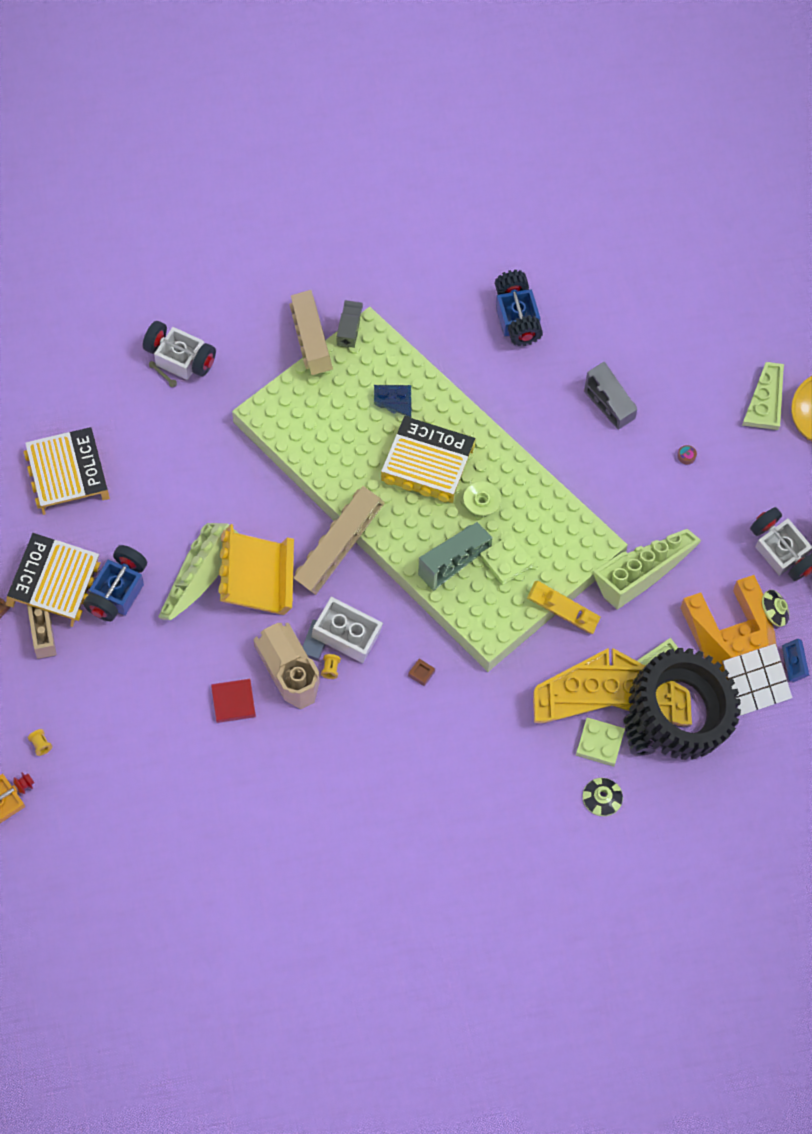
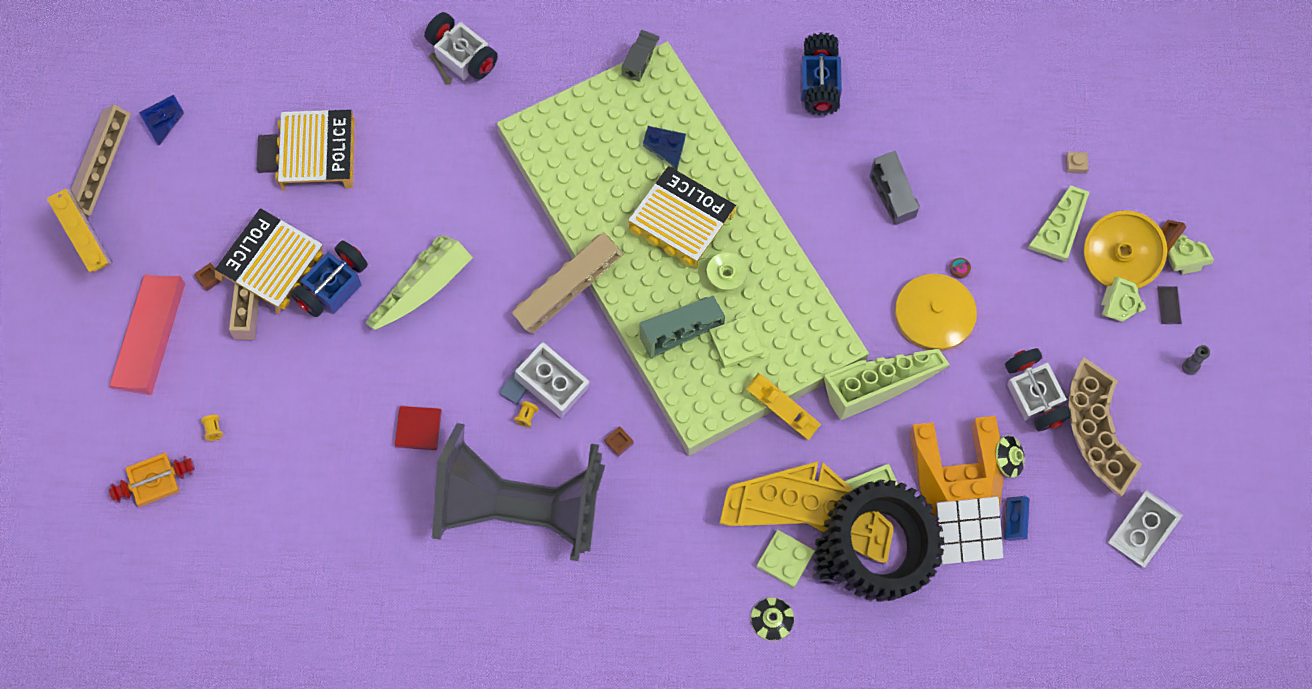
camera: 15 degrees right, 5 degrees up
(20, 484) = (266, 153): none -> clear smoke tile
(256, 572) = (475, 298): yellow panel -> none
(288, 665) = (481, 404): tan brick -> none
(309, 747) = (474, 493): none -> dark grey panel
(310, 333) = (598, 57): tan brick -> none
(675, 498) = (935, 312): none -> yellow dish
(765, 341) = (1077, 162): none -> tan plate

